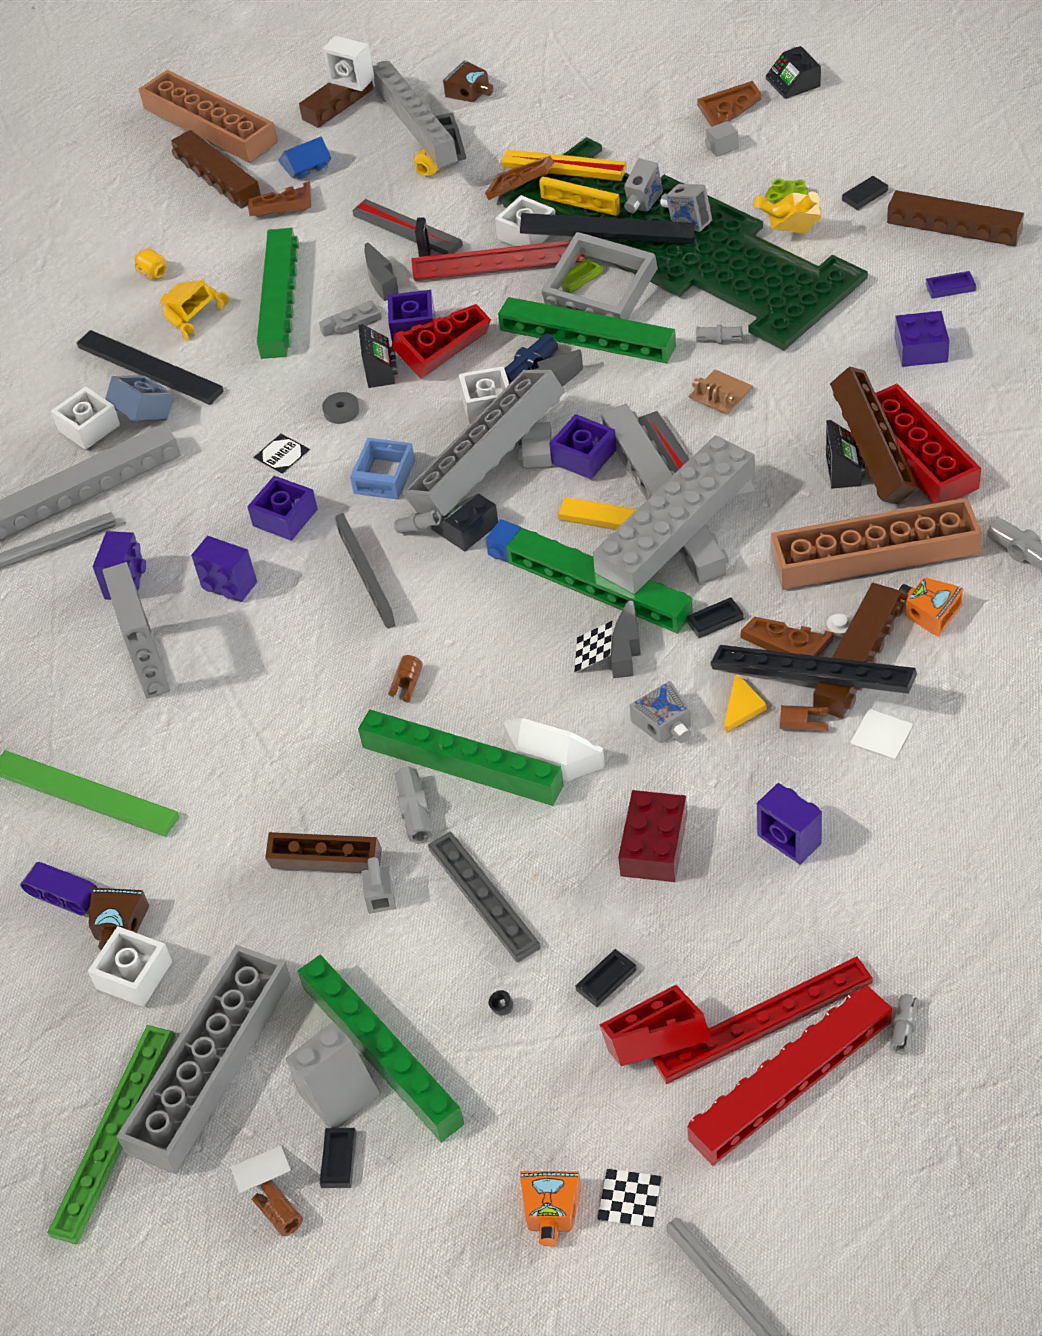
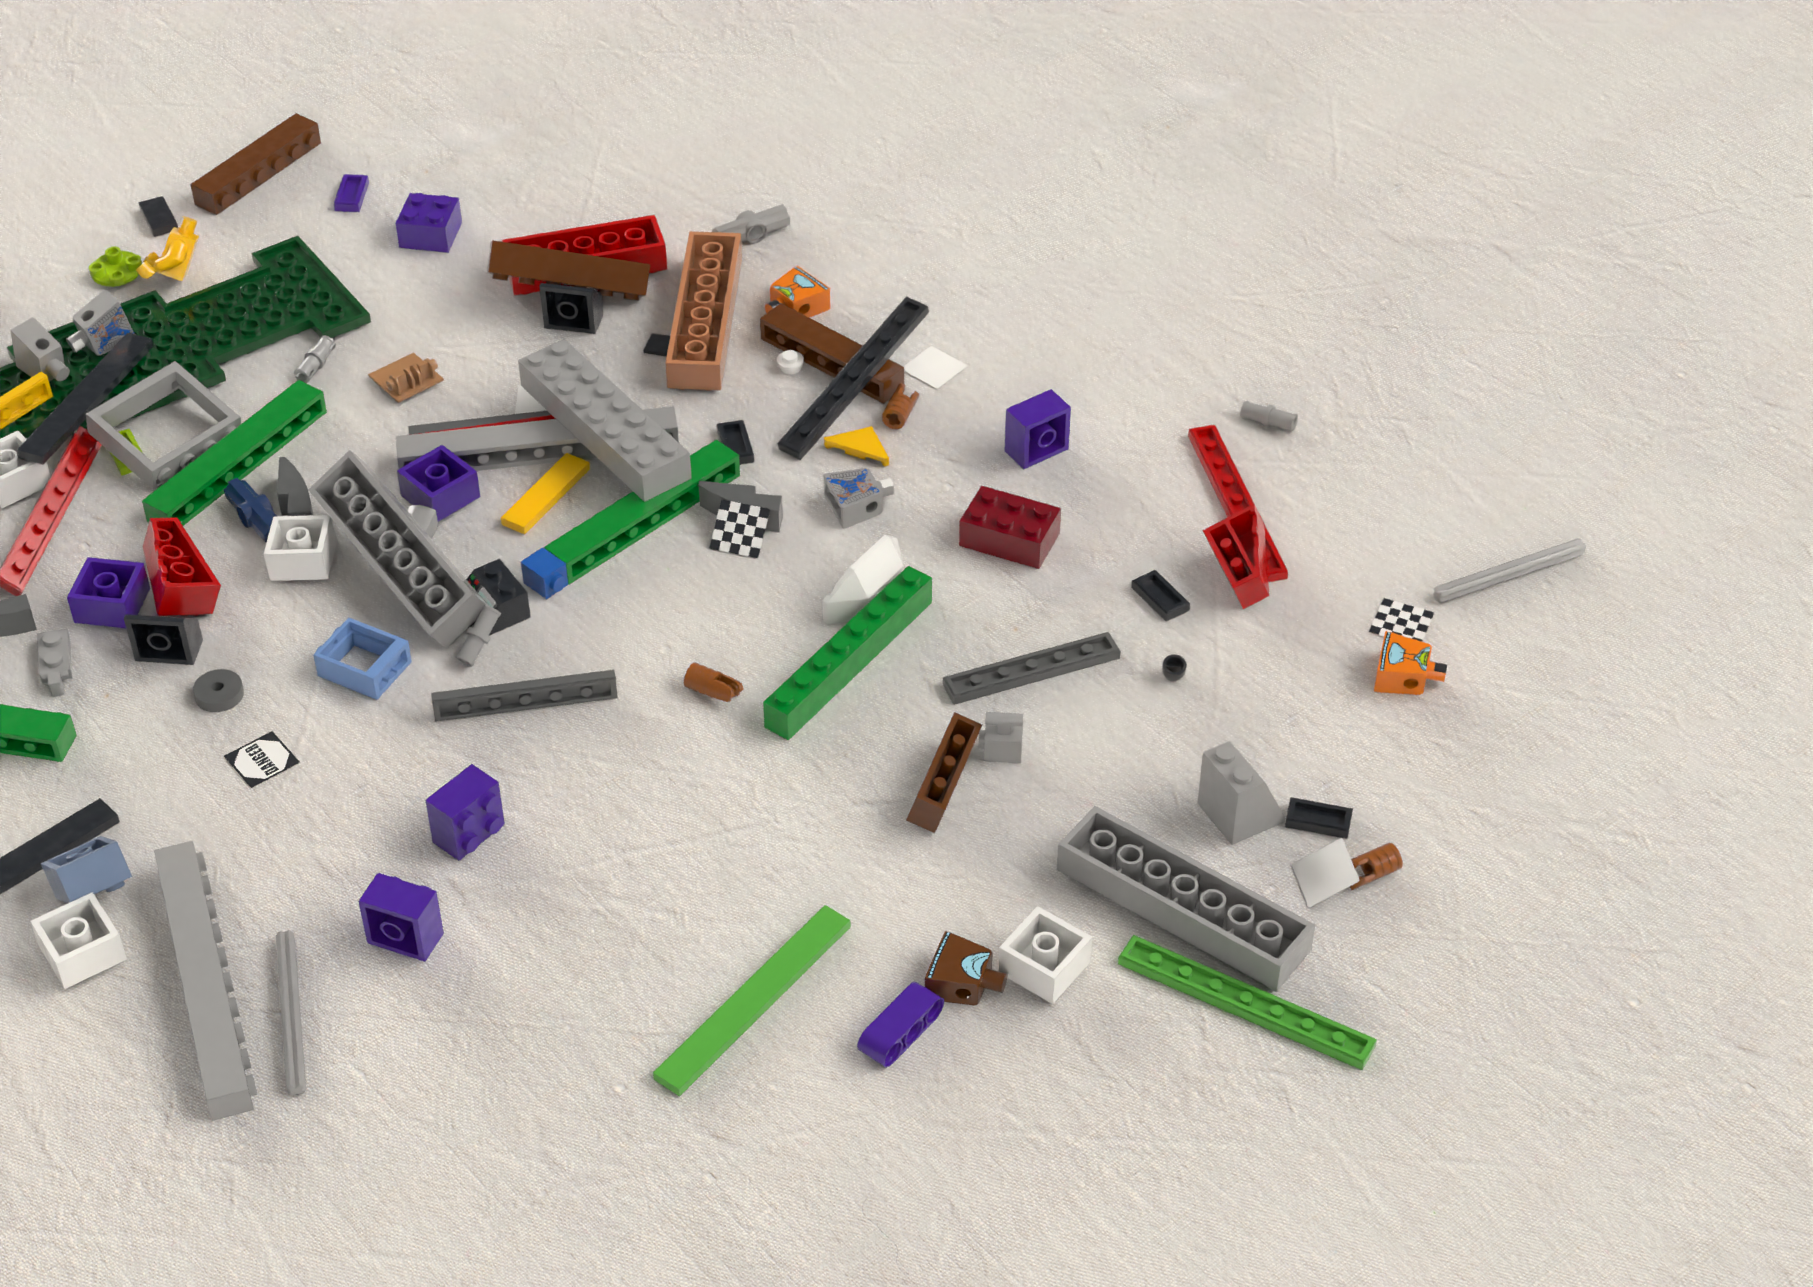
camera: 85 degrees left, 5 degrees down
(136, 630) = (565, 919): light grey window -> none
(282, 507) = (383, 751): dark purple brick -> none
(381, 1048) = (1179, 768): green brick -> none
(413, 805) = (896, 700): light grey piece -> none
(778, 637) = (793, 398): dark orange wing -> none
(788, 1074) = (1306, 492): red brick -> none

